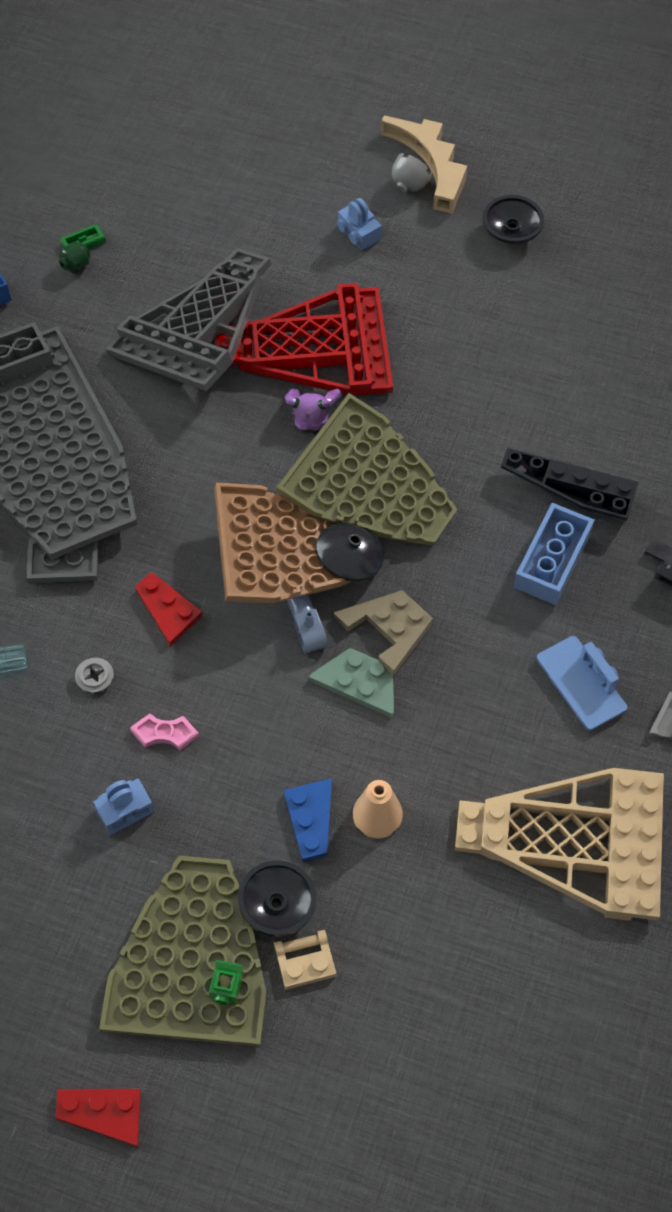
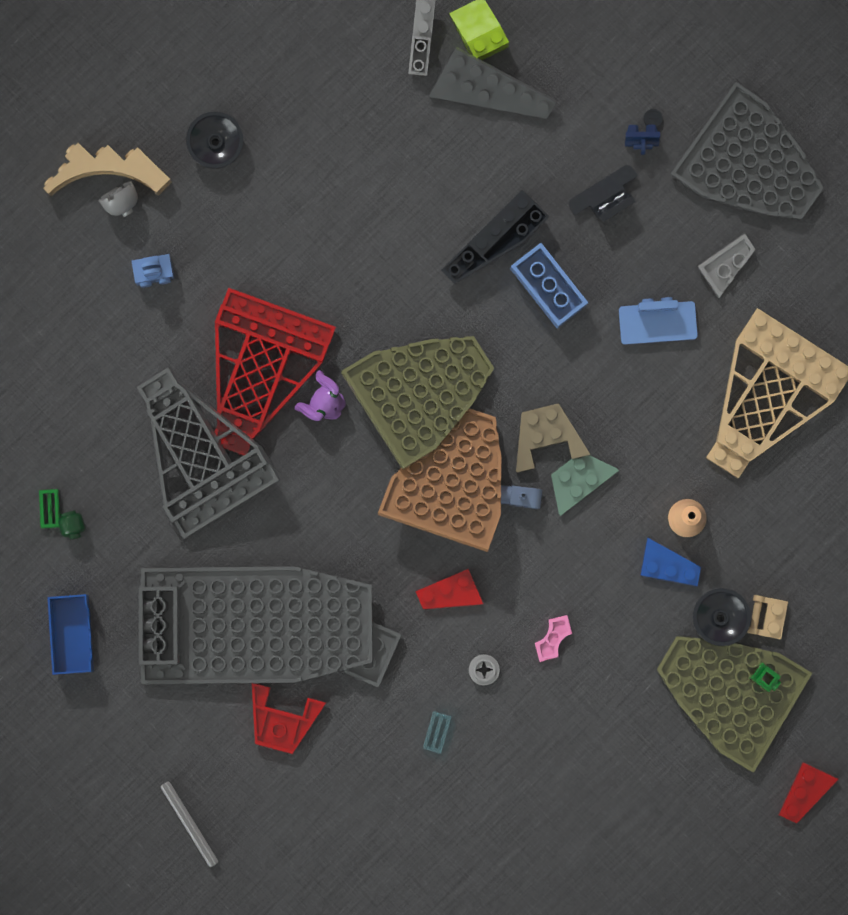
camera: 65 degrees left, 25 degrees up
(123, 805) = (600, 691): medium blue brick -> none
(349, 552) = (477, 448): black dish -> none

